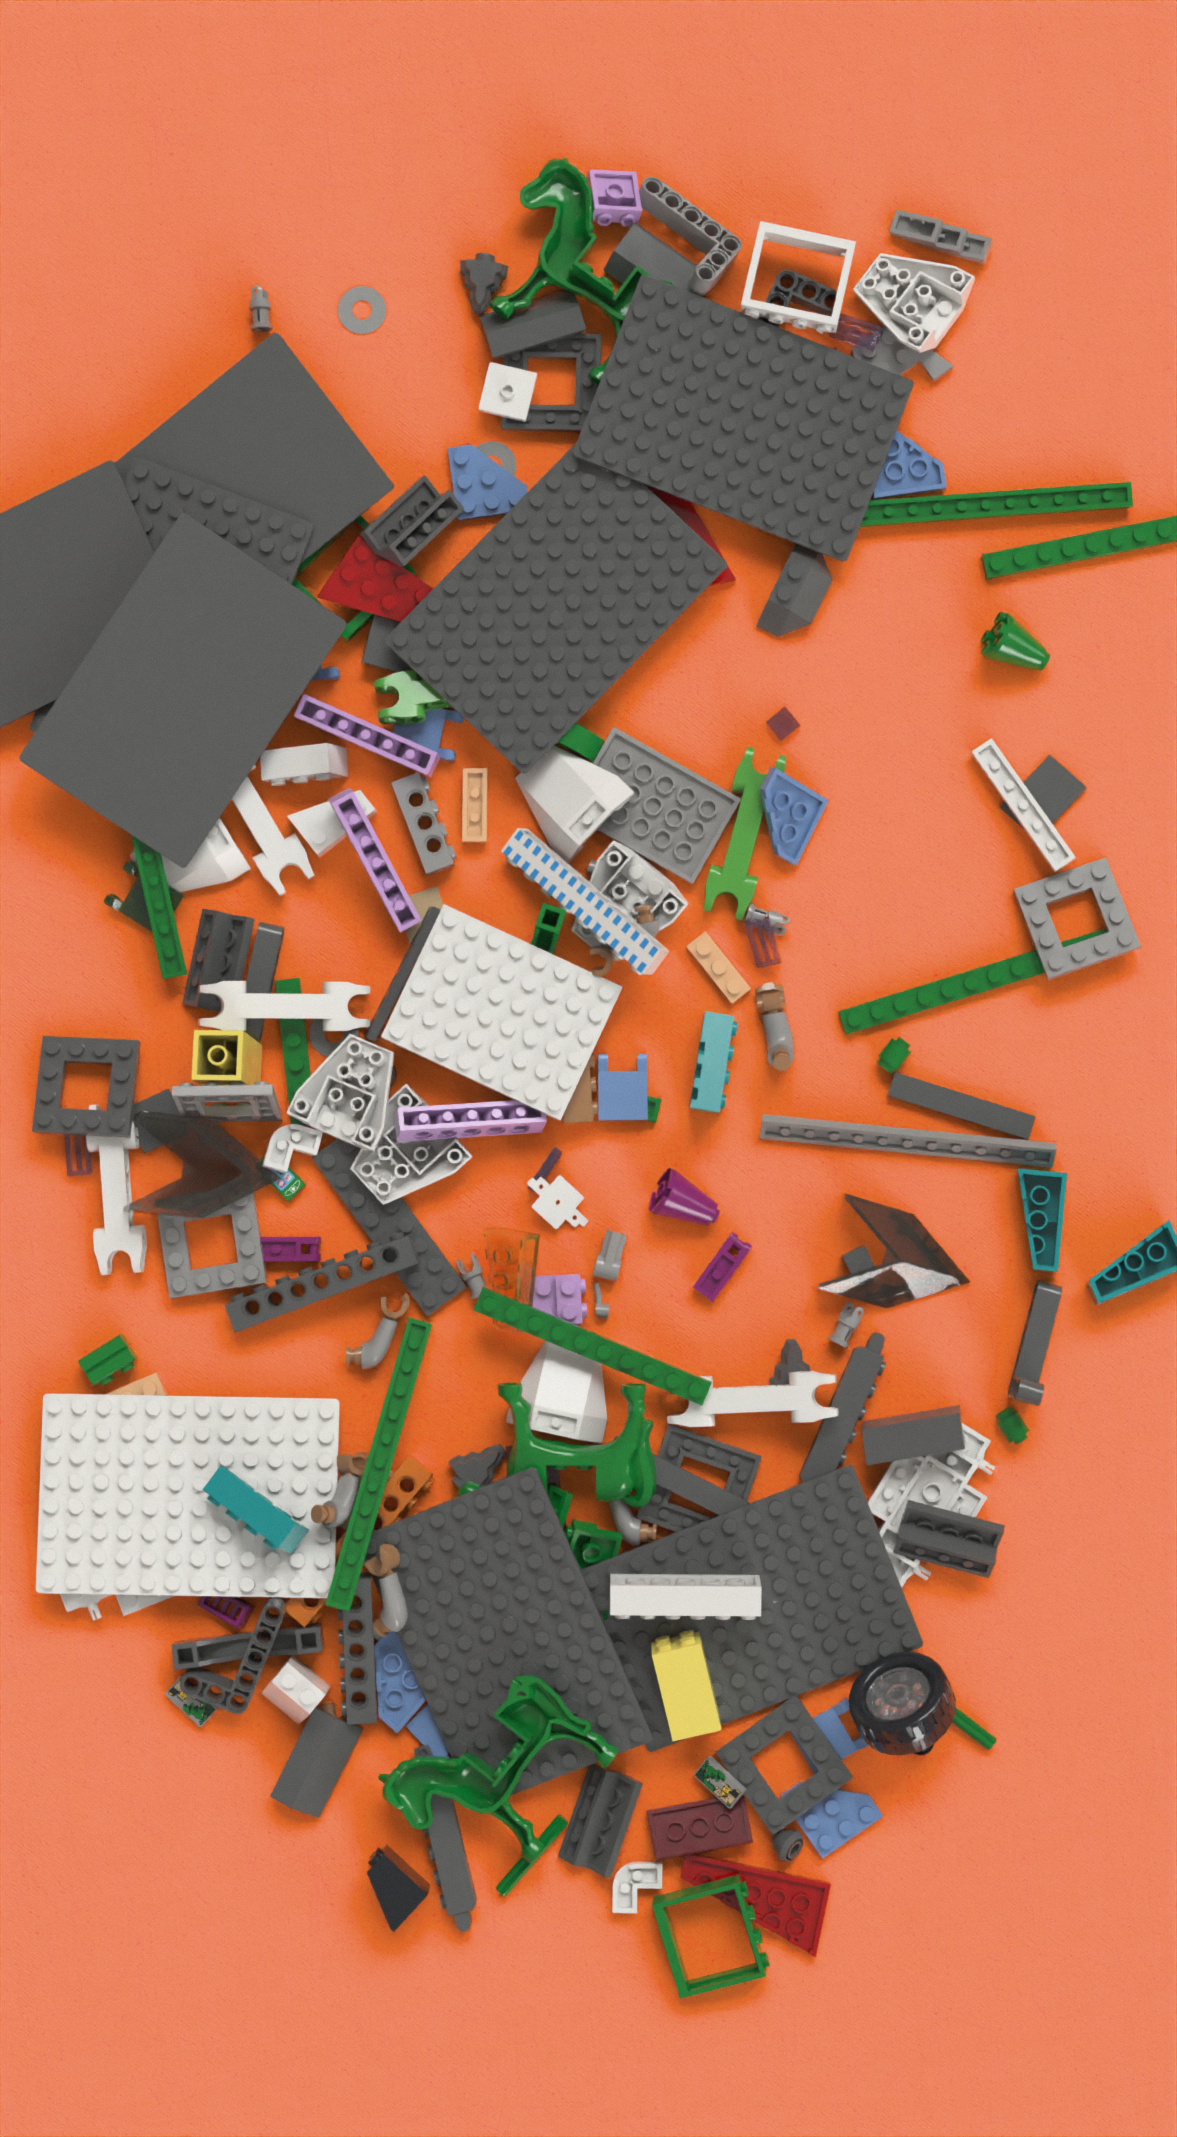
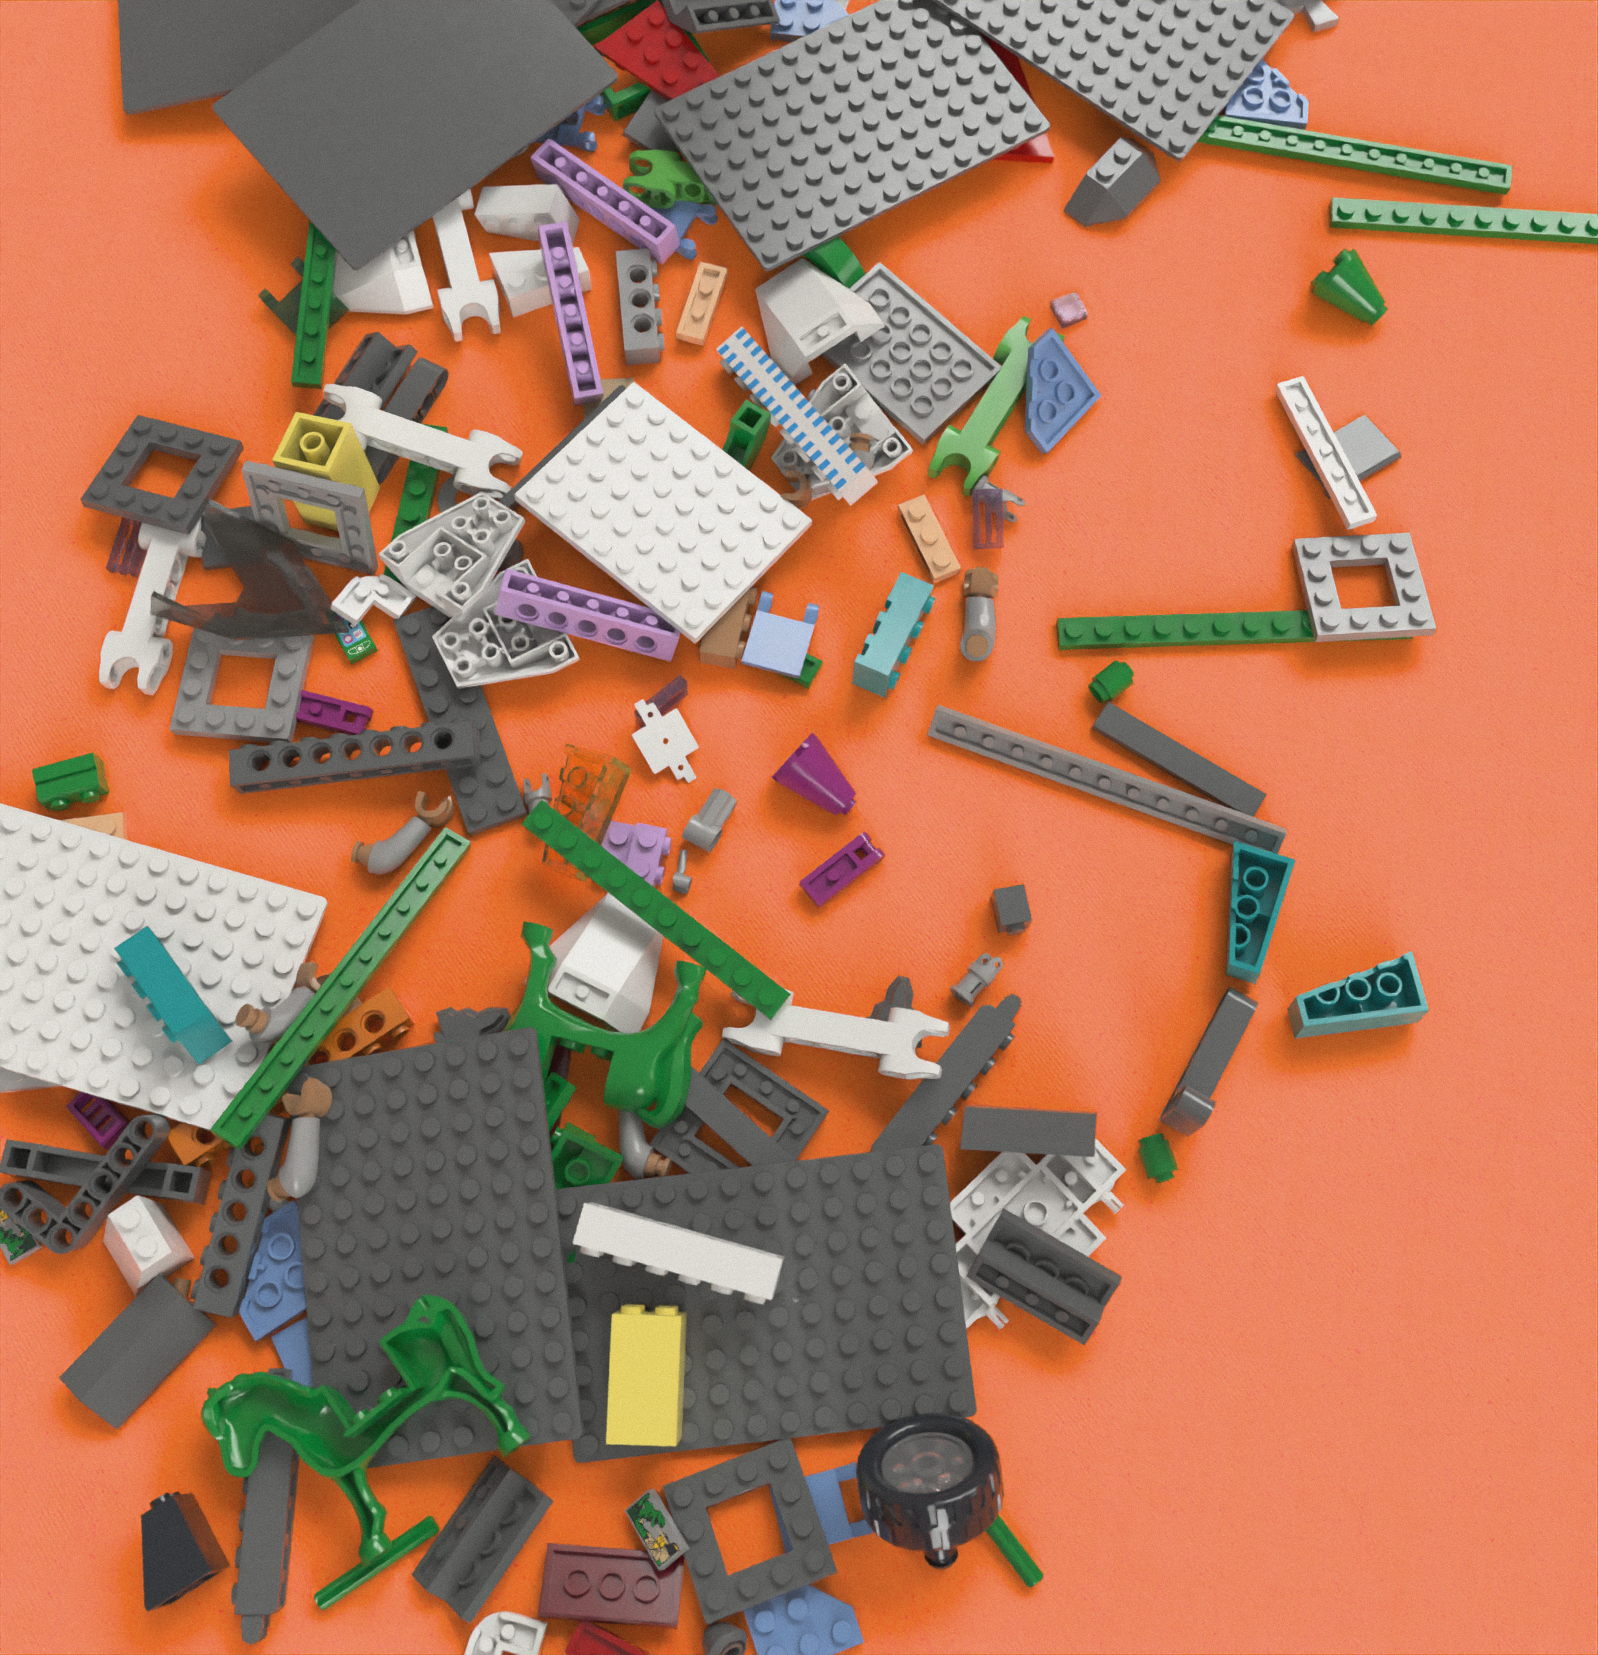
camera: 10 degrees right, 15 degrees down
(911, 1264) = (1067, 932): clear smoke windscreen -> none

